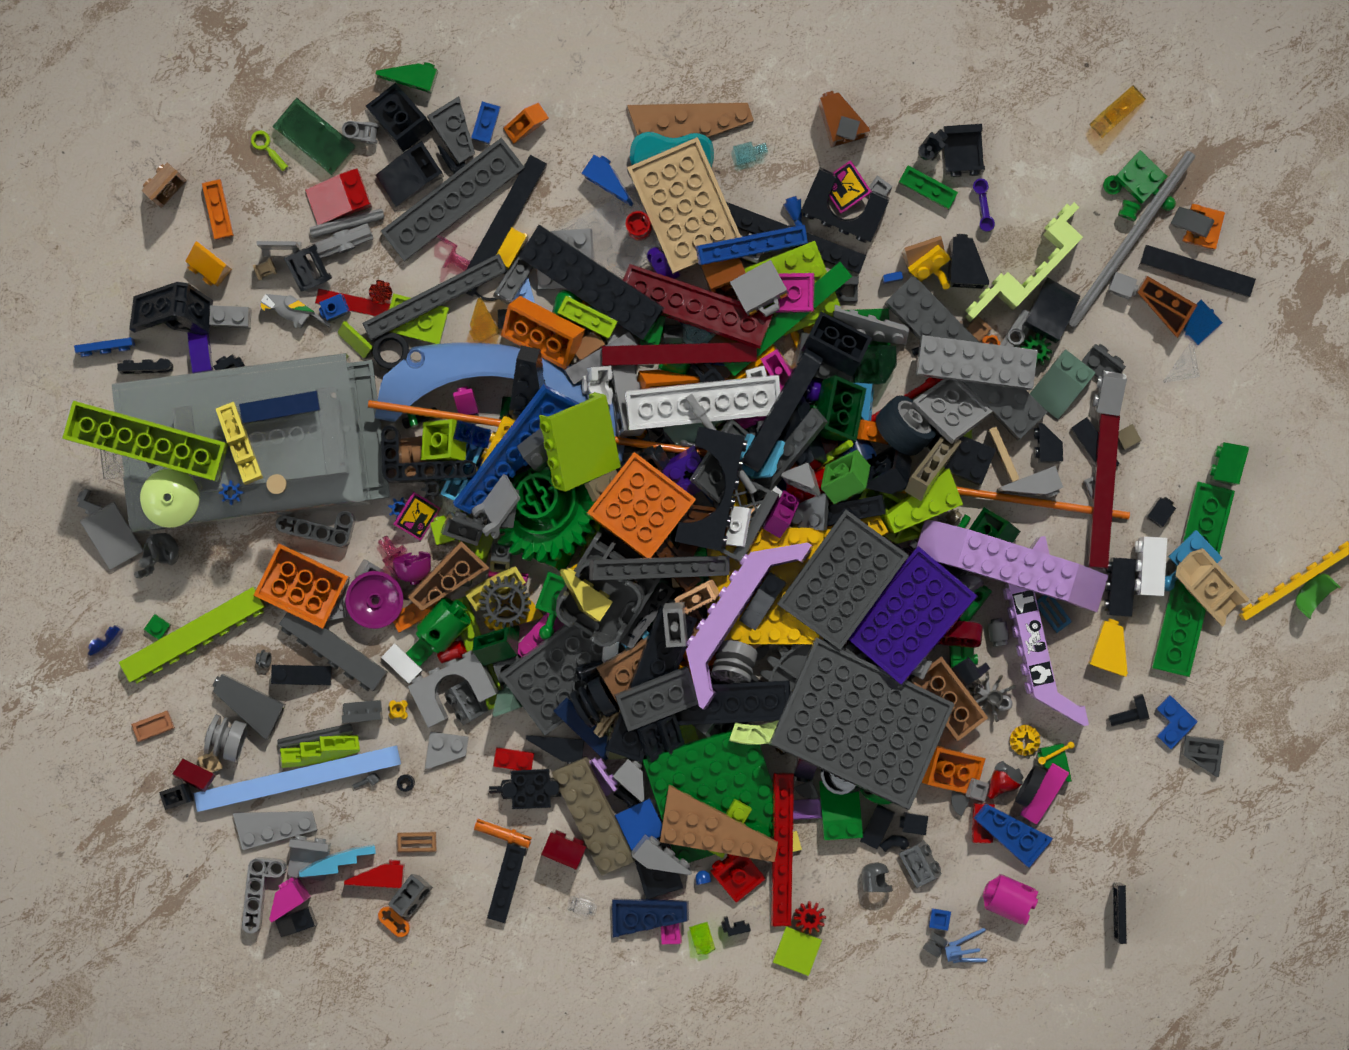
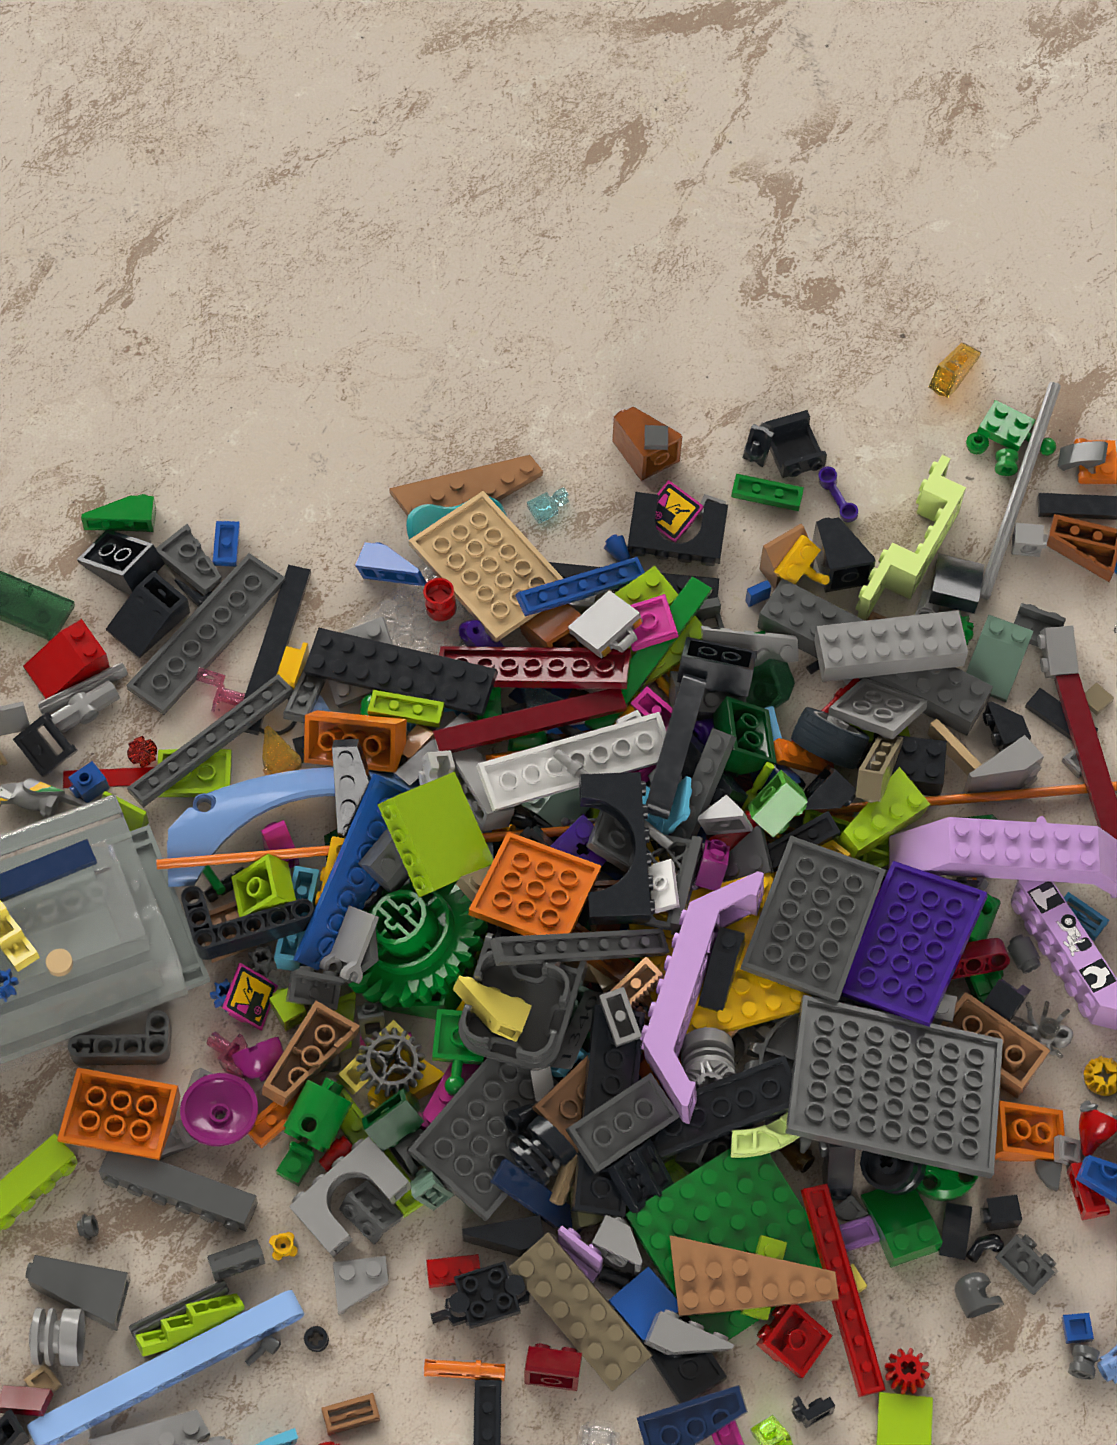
camera: 20 degrees left, 25 degrees down
(301, 674) = (141, 1233): black slope -> none
(362, 131) = (77, 585): light grey piece -> none
(386, 337) = (161, 802): black tyre -> none
(401, 663) = (273, 1185): white tile -> none
(472, 434) = (296, 871): clear blue slope -> none
(526, 122) = (274, 531): orange slope -> none
(702, 877) = (749, 1358): blue hinge -> none

